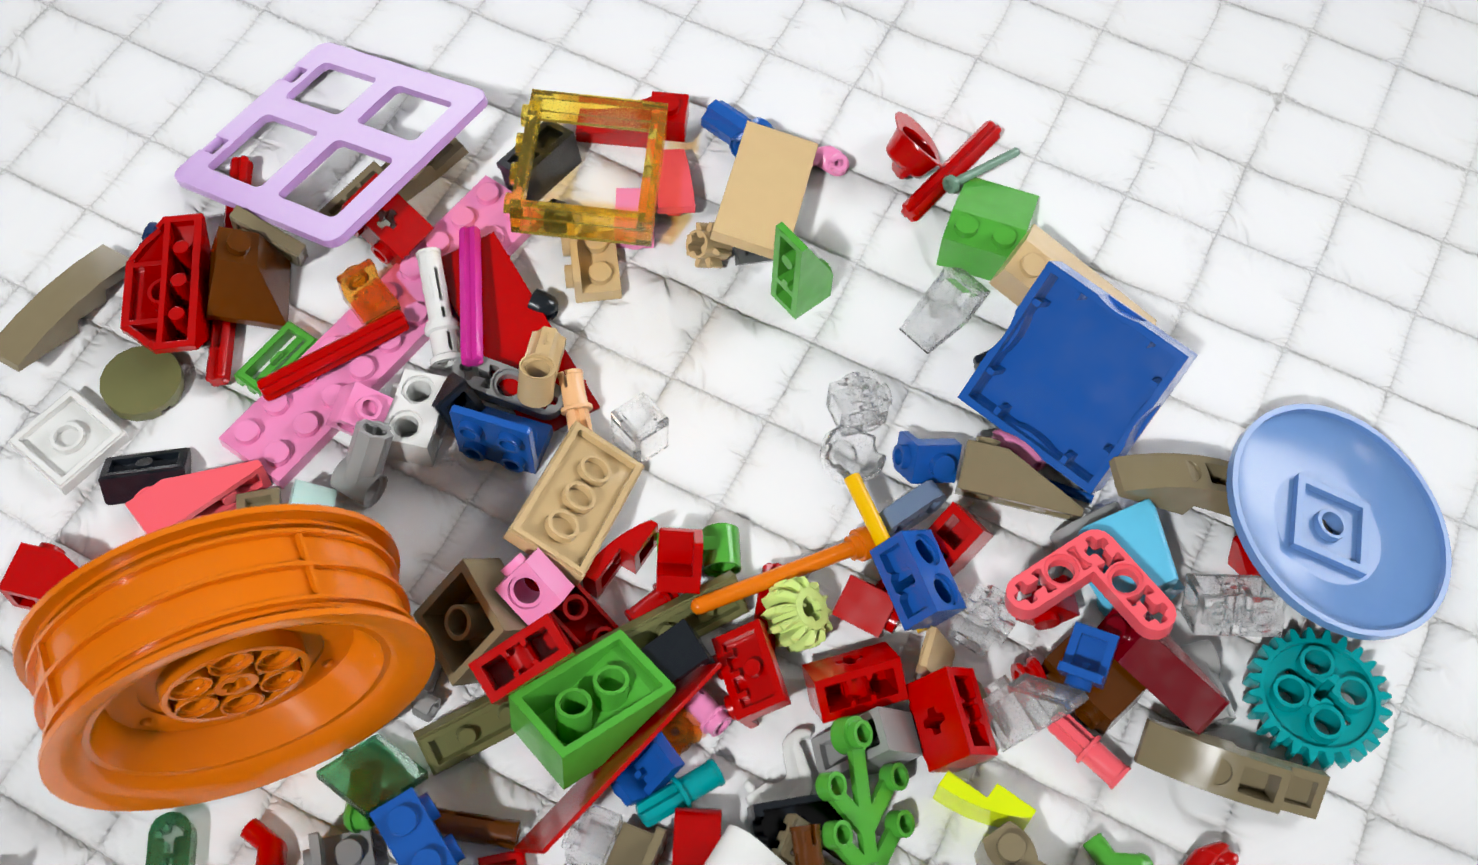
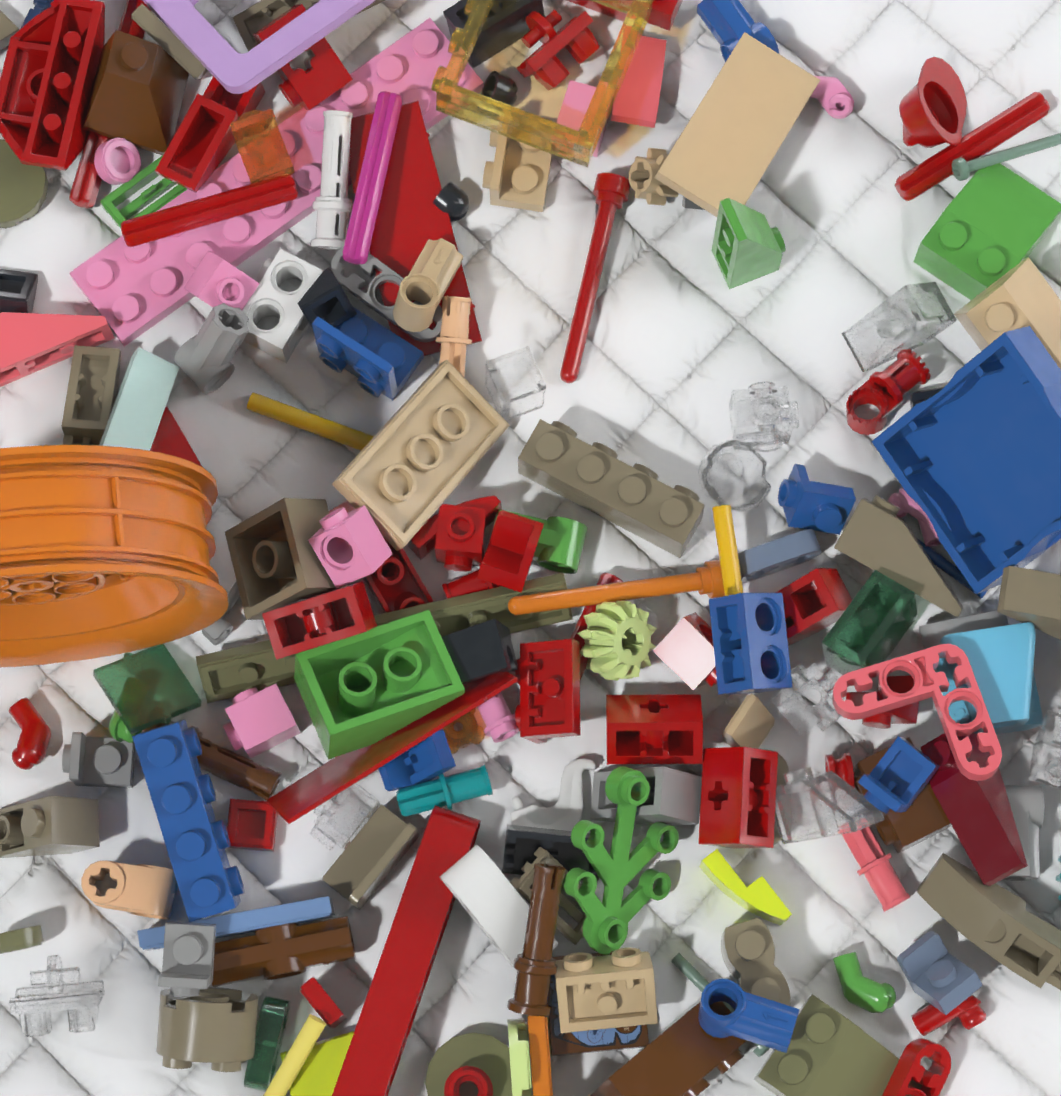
camera: 20 degrees right, 15 degrees up
(242, 339) = (117, 161): none -> bright pink tile
(316, 295) = (206, 134): none -> red slope
(464, 508) = (308, 421): none -> yellow bar
(488, 776) = (259, 720): none -> bright pink brick
(590, 186) = (573, 36): none -> red hips
(630, 564) = (460, 537): none -> red bracket
(675, 267) = (610, 193): none -> red piece
(748, 491) = (610, 487): none -> dark tan brick
(945, 362) = (886, 391): none -> red connector
(1011, 541) = (870, 625): none -> clear green brick
(1184, 831) = (937, 973): none -> sand blue bracket

